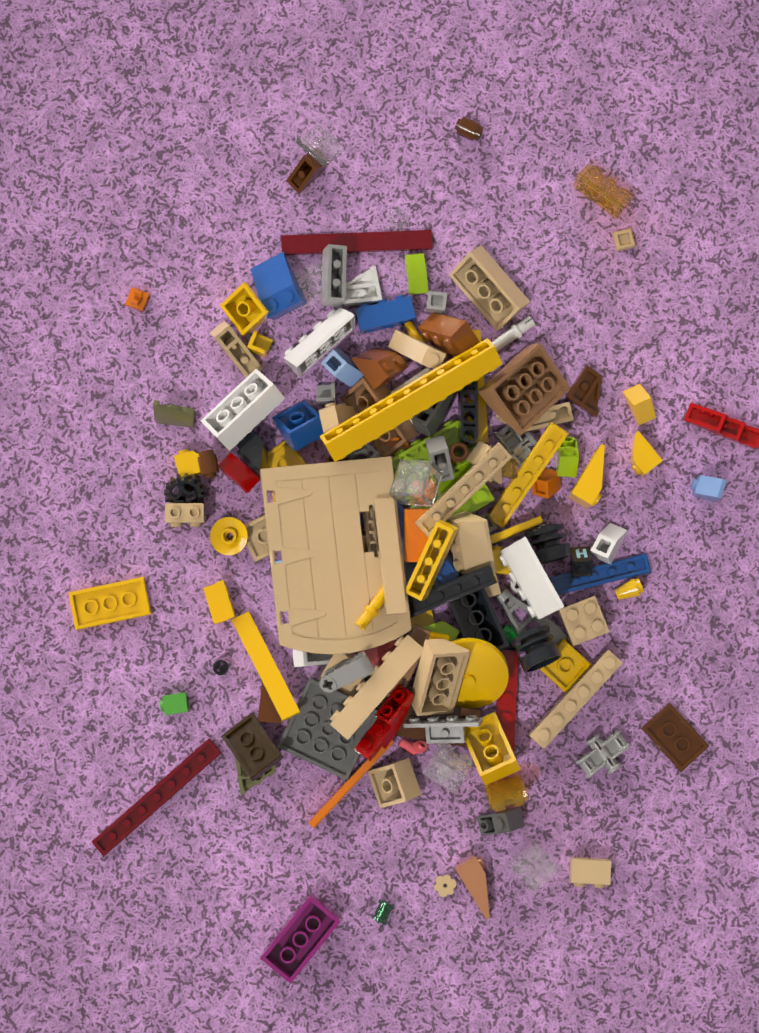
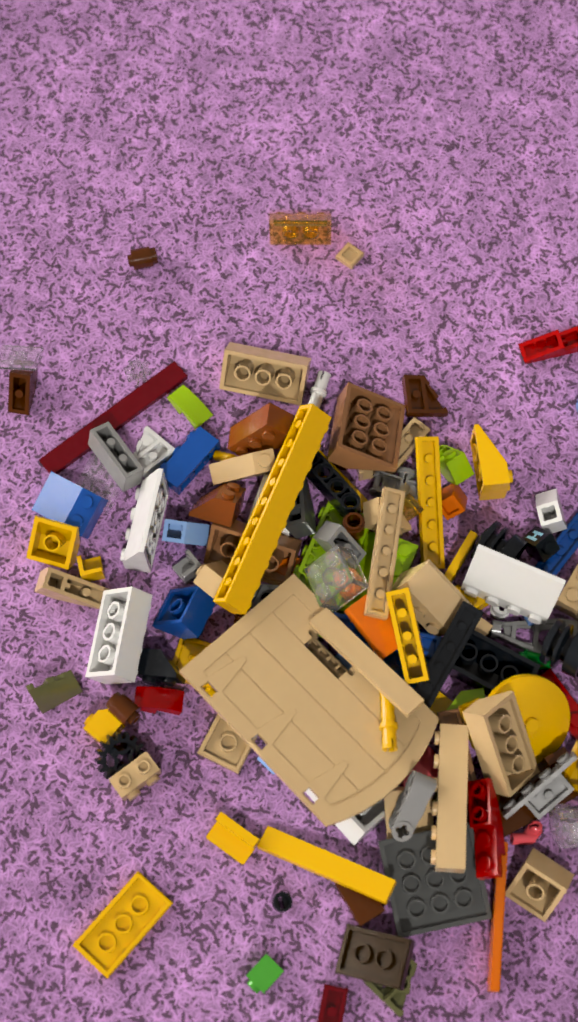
camera: 35 degrees left, 15 degrees down
(219, 534) = (183, 761): yellow dish -> none
(436, 302) = (227, 414): light grey panel -> none
(640, 404) = (476, 375): yellow slope -> none
(643, 455) = (515, 415): yellow slope -> none

